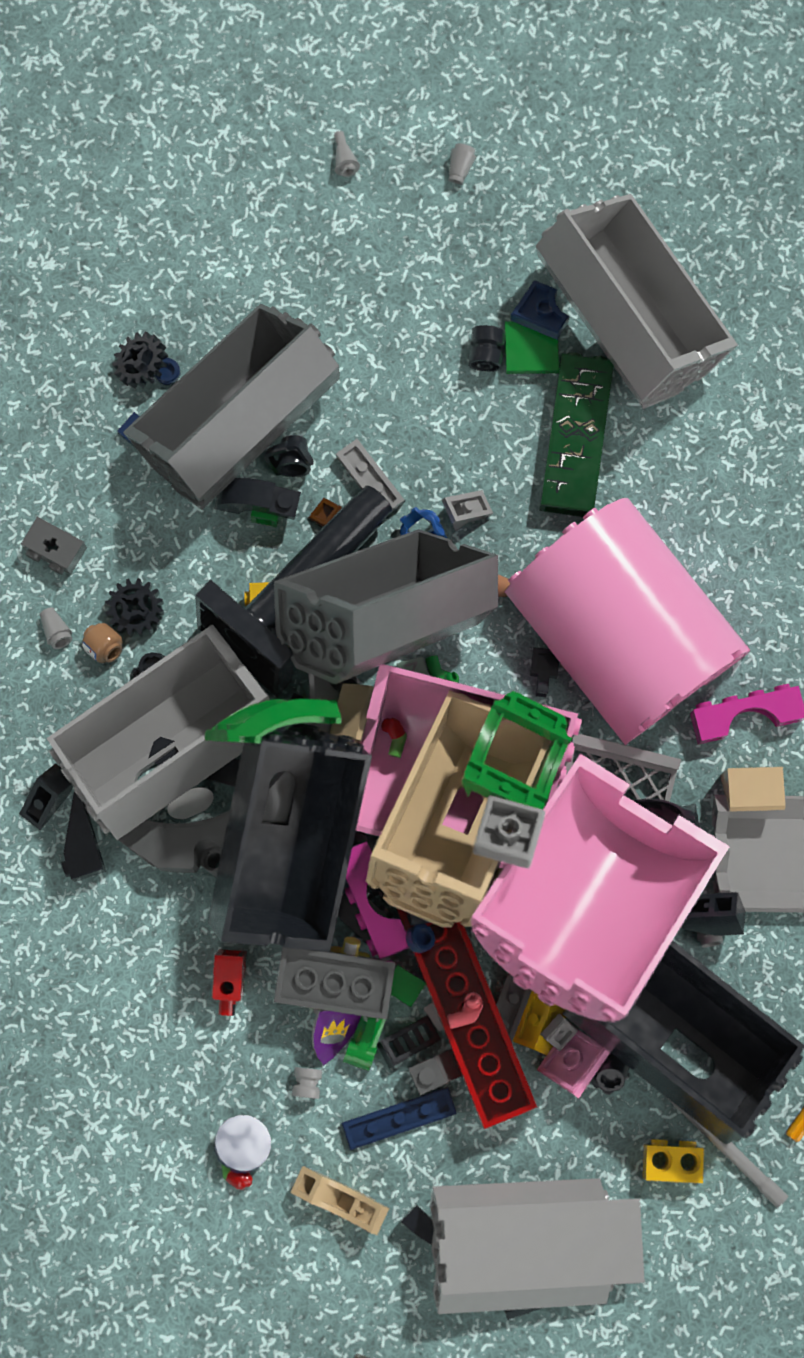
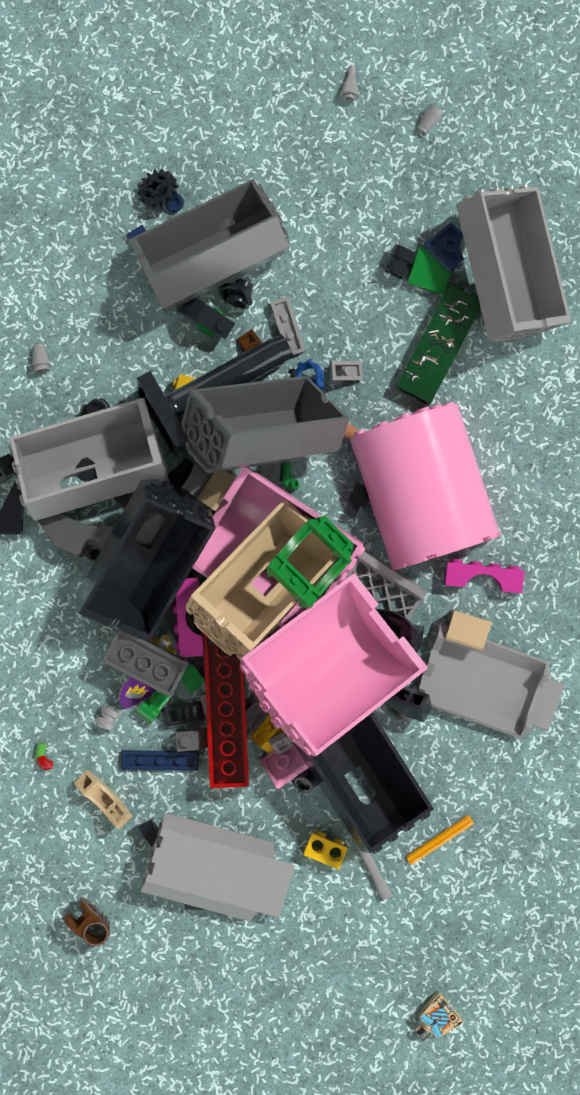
camera: 25 degrees right, 10 degrees up
(44, 534) = (67, 306): dark grey brick -> none
(102, 643) = (68, 380): medium nougat head -> none
(128, 617) = (104, 357): black gear -> none
(191, 803) = (93, 510): white sticker -> none
(230, 967) = (82, 628): red torso -> none
(242, 1144) = (53, 742): tile -> none
(259, 719) = (157, 479): green wedge -> none
(397, 734) = (244, 511): arm -> none
(420, 938) = (210, 653): dark blue tile -> none
(469, 1012) = (225, 712): coral arm -> none
(509, 848) = (283, 599): light grey brick -> none

